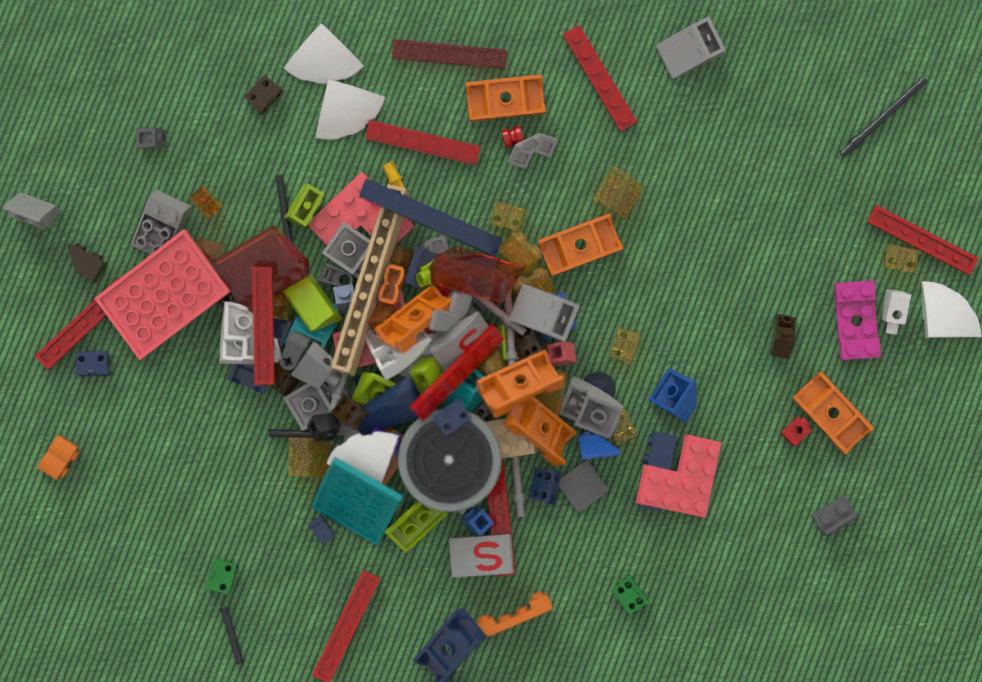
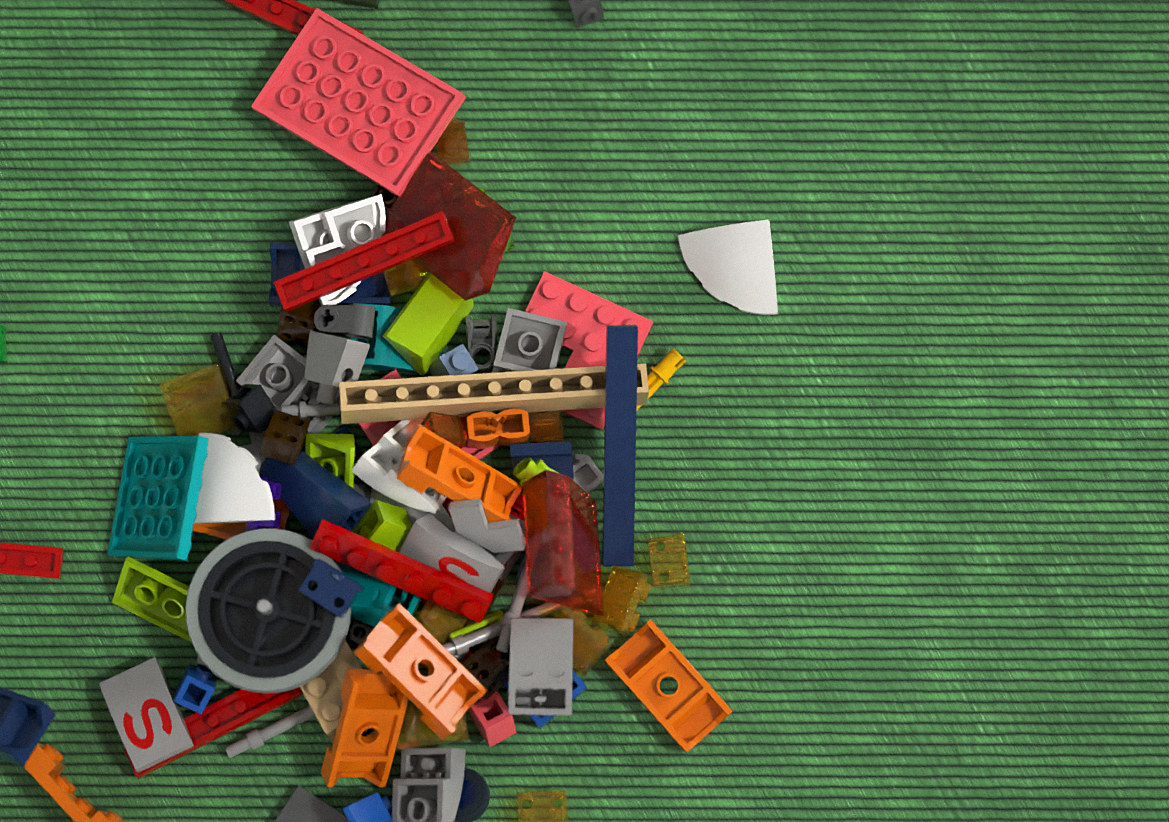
camera: 65 degrees right, 5 degrees down
(58, 457) = (68, 48): orange brick -> none
(92, 365) = (221, 43): dark blue piece -> none
(160, 221) = (467, 59): light grey slope -> none
(205, 201) = (519, 112): clear orange brick -> none
(264, 95) = (710, 138): dark brown piece -> none
(283, 207) = (551, 232): black bar -> none
(304, 205) = (569, 257): lime brick -> none
(321, 528) = (100, 463): dark blue piece -> none
(323, 59) = (797, 201): white brick -> none
(423, 142) = (732, 394): red plate -> none
(449, 54) = (879, 383): clear red tile -> none
(512, 136) = (792, 523): red wheel -> none
(524, 150) = (796, 565): light grey tile -> none
(525, 95) = (855, 520): orange piece -> none
(547, 486) = (287, 775): dark blue piece -> none
(599, 78) = (931, 620): red plate -> none
(618, 192) = (769, 713): clear yellow slope -> none
(691, 48) = (1032, 739): light grey slope -> none

